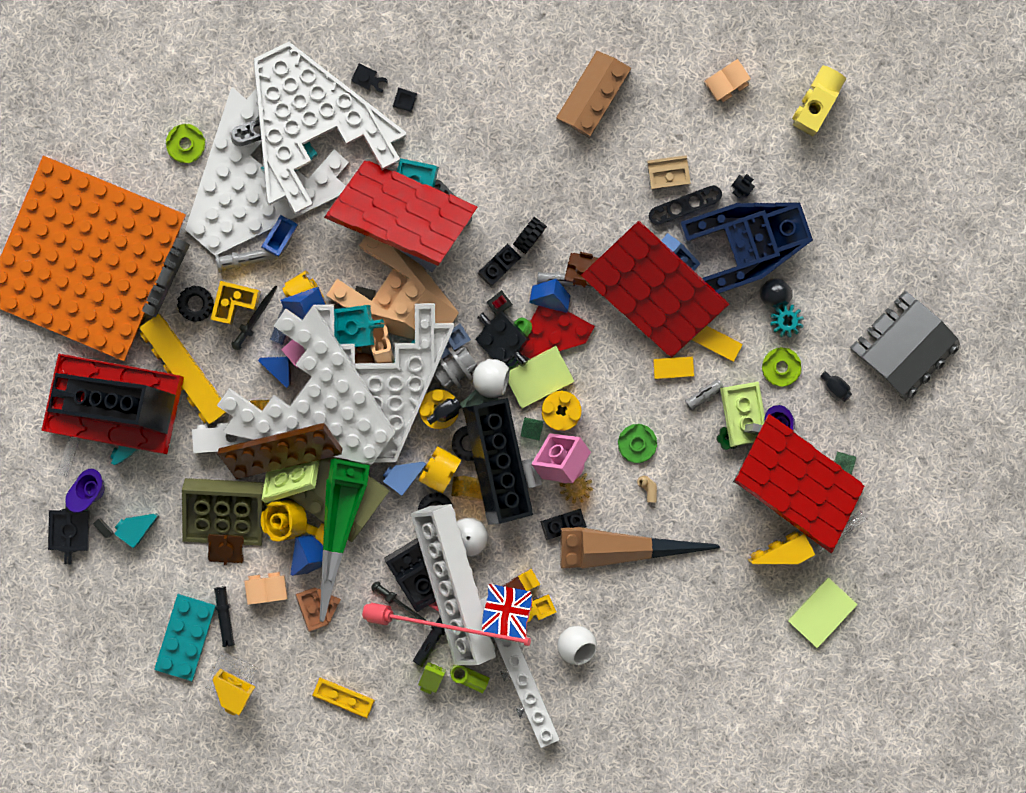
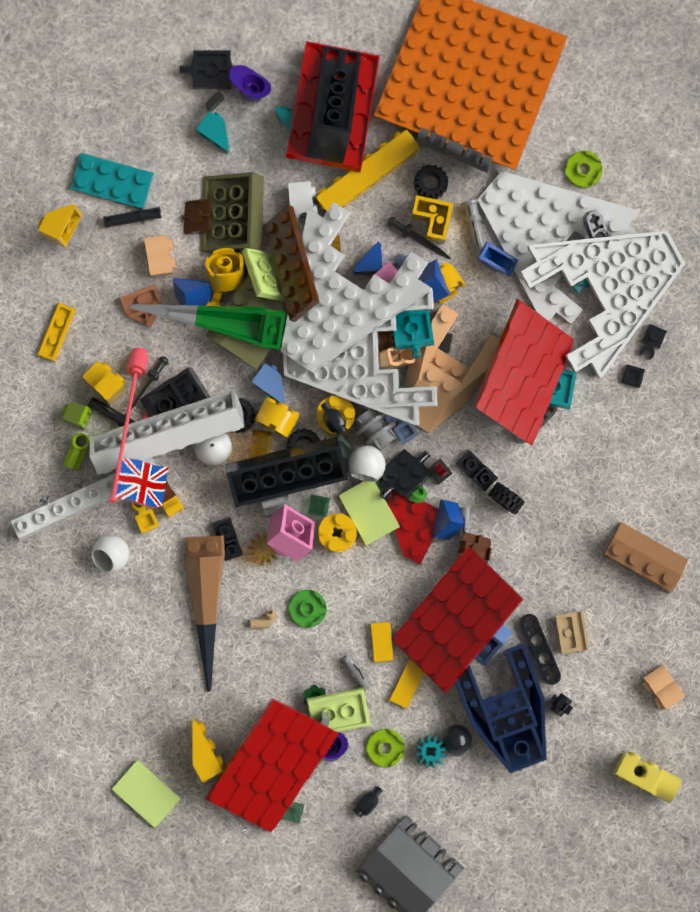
camera: 85 degrees right, 5 degrees down
(398, 649) = (104, 382): none -> yellow brick

